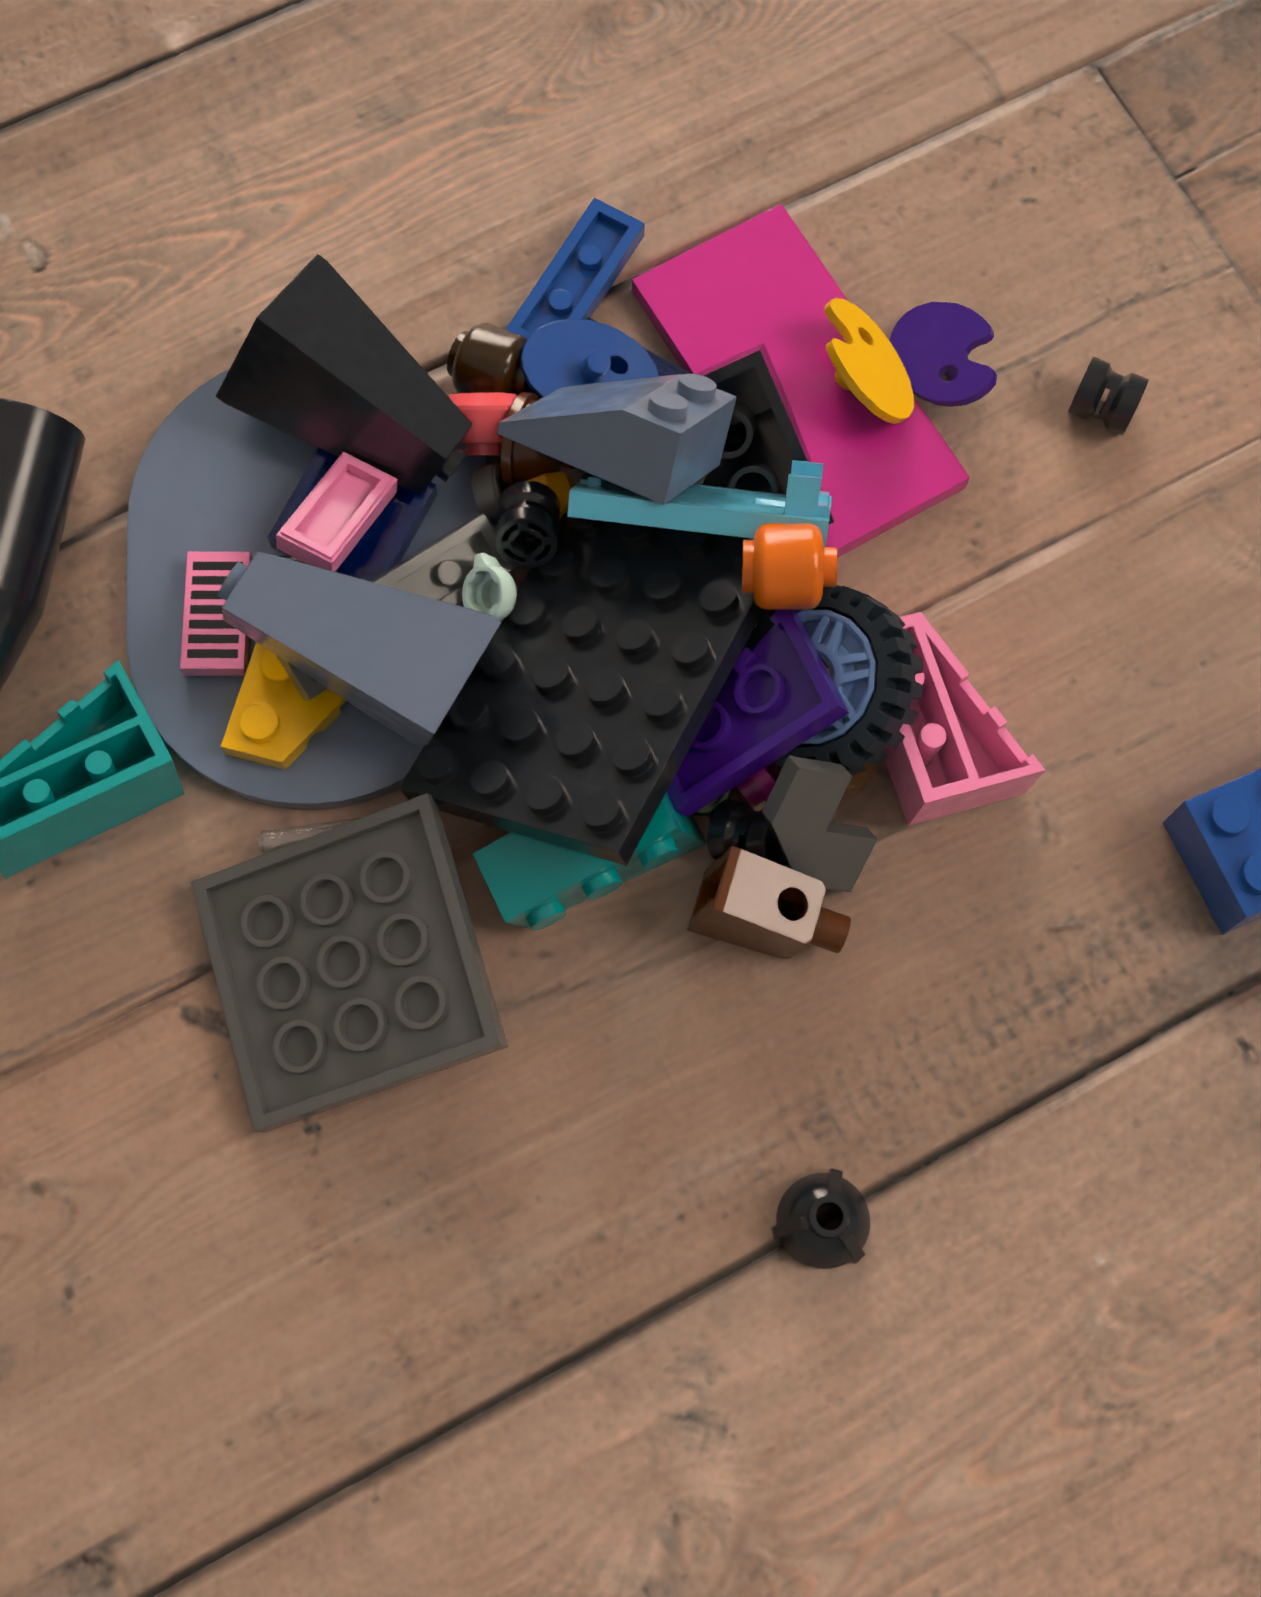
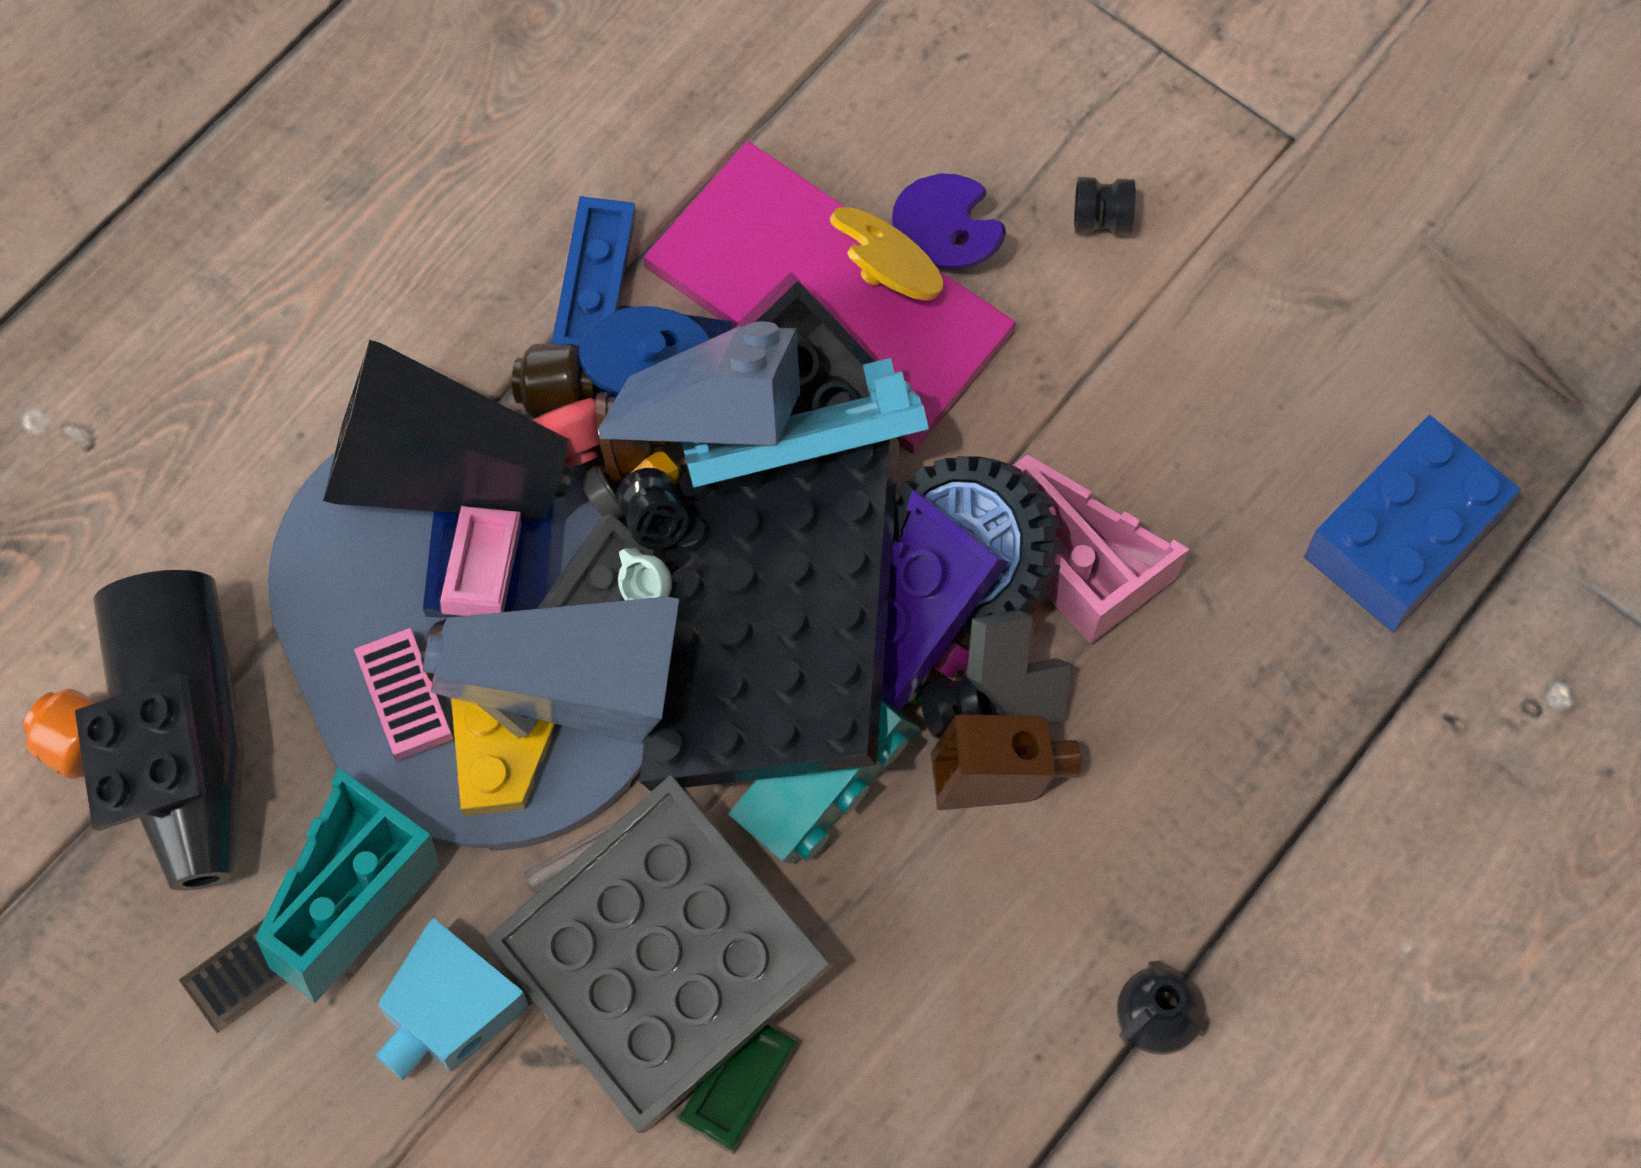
camera: 20 degrees left, 5 degrees down
(125, 928) = (445, 1003): none -> medium azure torso
(369, 1129) = (735, 1092): none -> dark green tile
(788, 566) = (905, 458): orange head -> none

